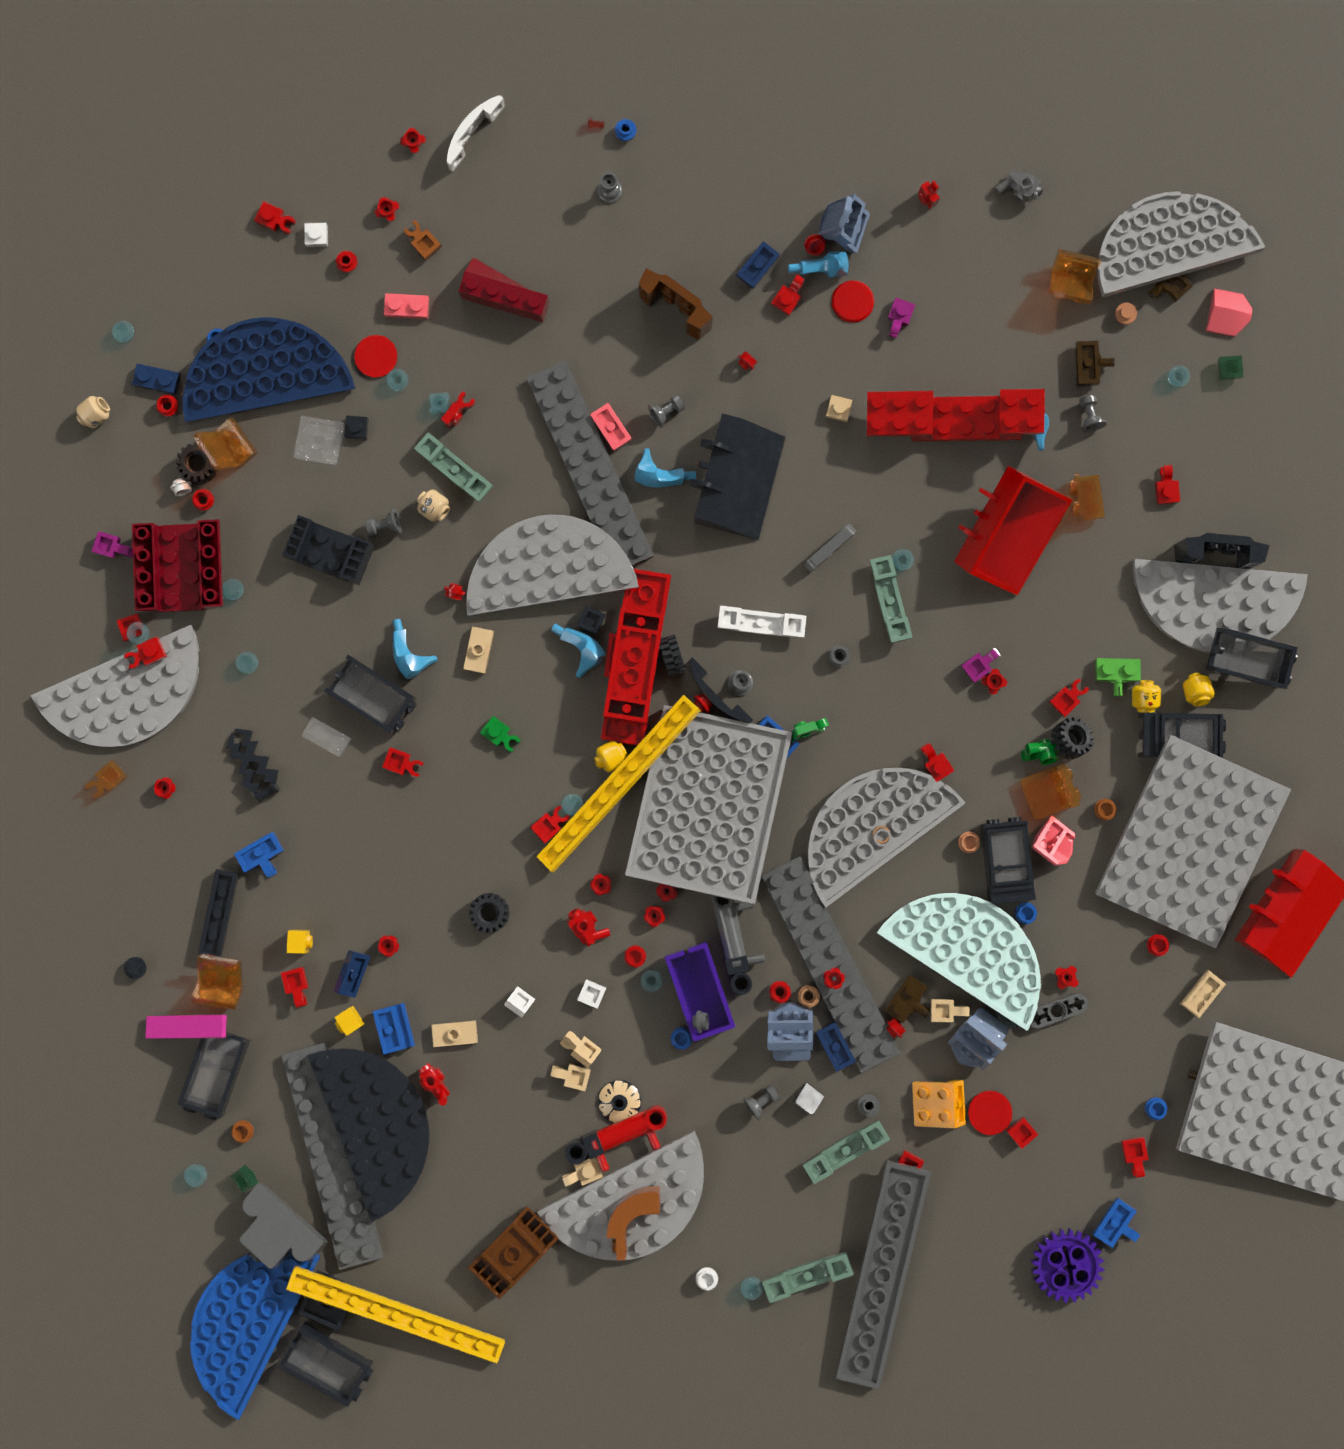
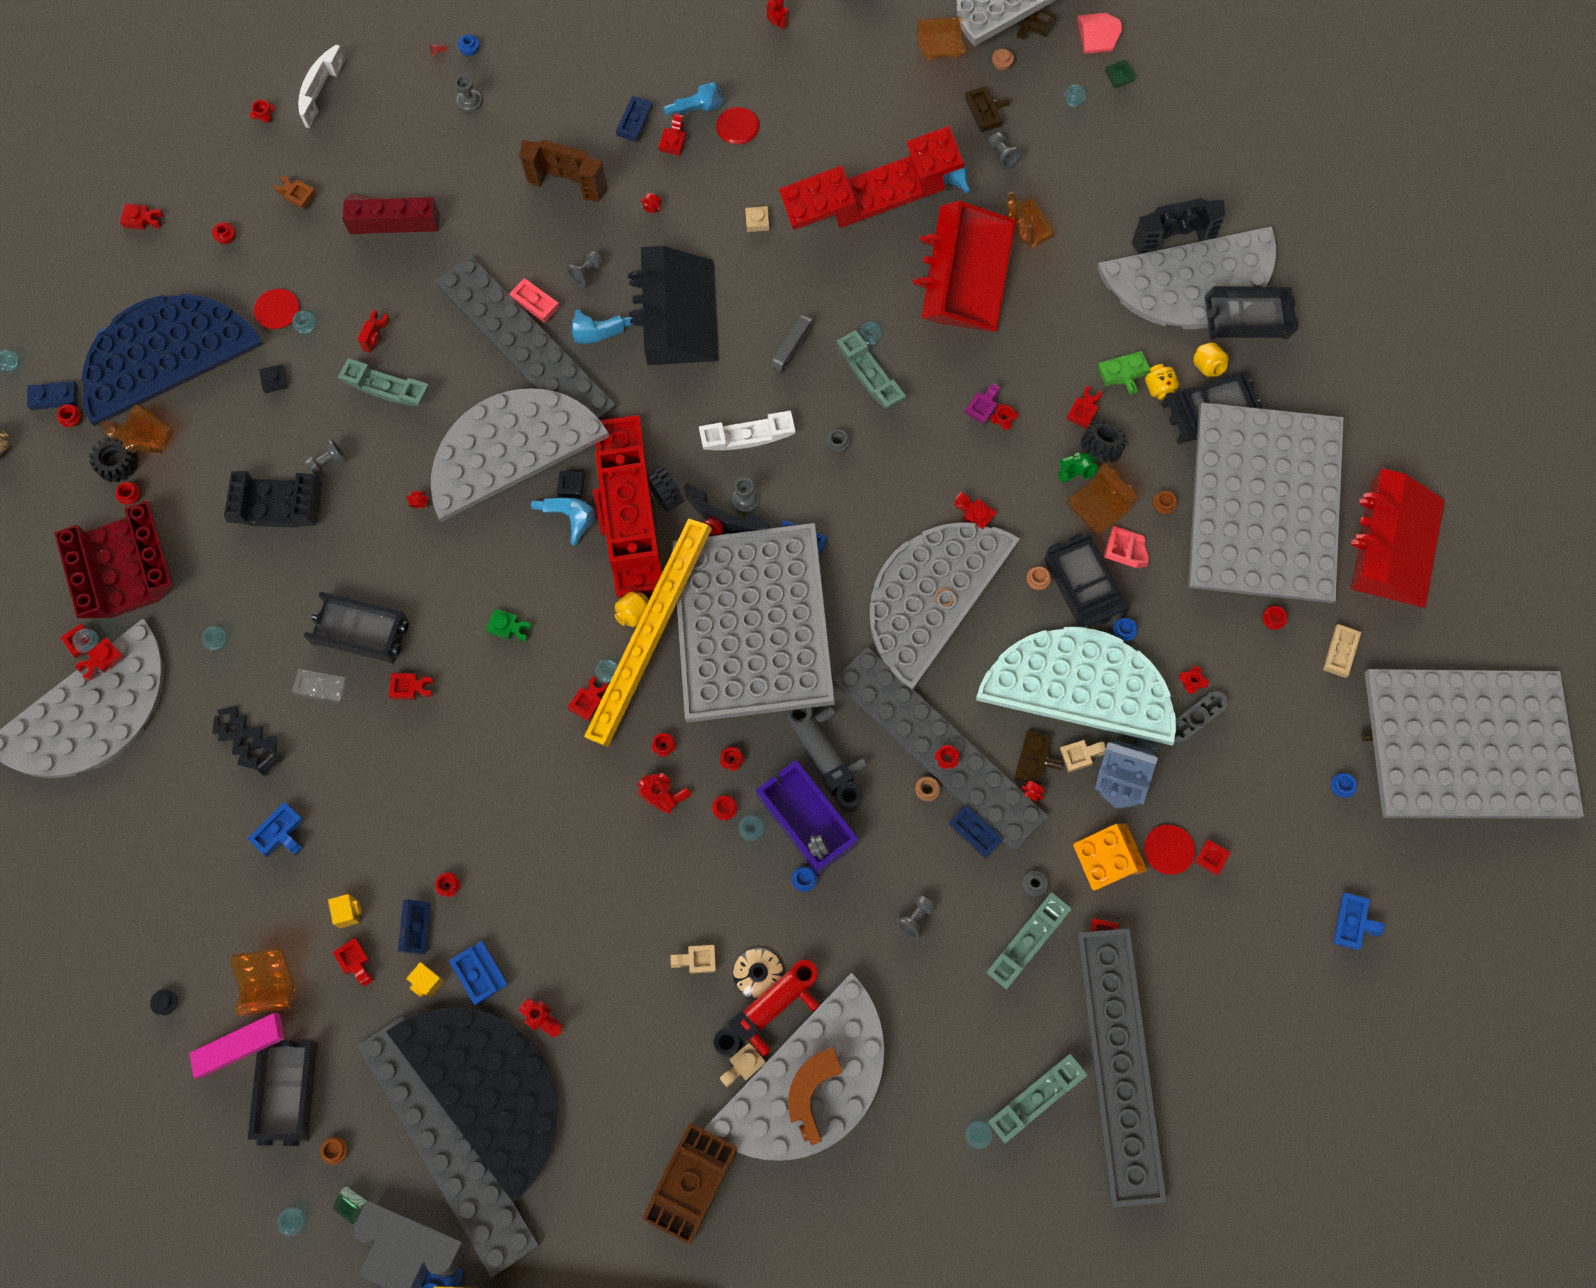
camera: 15 degrees left, 15 degrees down
(108, 777) = (86, 802): clear orange plate -> none
(110, 545) = (37, 566): magenta plate -> none
(158, 788) = (147, 792): red plate -> none
(181, 487) = (102, 487): white plate -> none
(218, 913) = (245, 906): black plate -> none
(233, 589) = (181, 570): clear light blue plate -> none
(316, 235) = (186, 219): white plate -> none
(319, 441) = (237, 401): clear plate -> none
(387, 203) = (250, 171): red plate -> none
(406, 306) = (295, 255): coral plate -> none
(407, 663) = (387, 582): dark azure animal -> none
(433, 505) = (372, 424): tan head -> none
(439, 397) = (348, 327): clear light blue plate -> none
(454, 1033) = (549, 957): tan plate -> none
(478, 650) = (460, 550): tan plate -> none
(489, 926) = (549, 827): black tyre -> none
(519, 1002) = (611, 897): white plate -> none
(584, 1049) = (697, 926): tan plate -> none
(591, 993) = (689, 862): white plate -> none
(660, 891) = (732, 732): red plate -> none
(706, 1278) = (923, 1141): white plate -> none
(783, 998) = (898, 787): red plate -> none
(790, 1032) = (922, 833): sand blue piece -> none
(803, 729) = (827, 519): green plate -> none
(808, 1099) = (966, 899): slope -> none
(815, 244) = (683, 86): red plate -> none
(845, 222) = (705, 55): sand blue piece -> none
(900, 315) = (787, 122): magenta plate -> none
(1085, 1261) = (1300, 997): dark purple gear -> none
(1135, 1152) = (1342, 838): red plate -> none
(1167, 490) = (1103, 194): red plate -> none

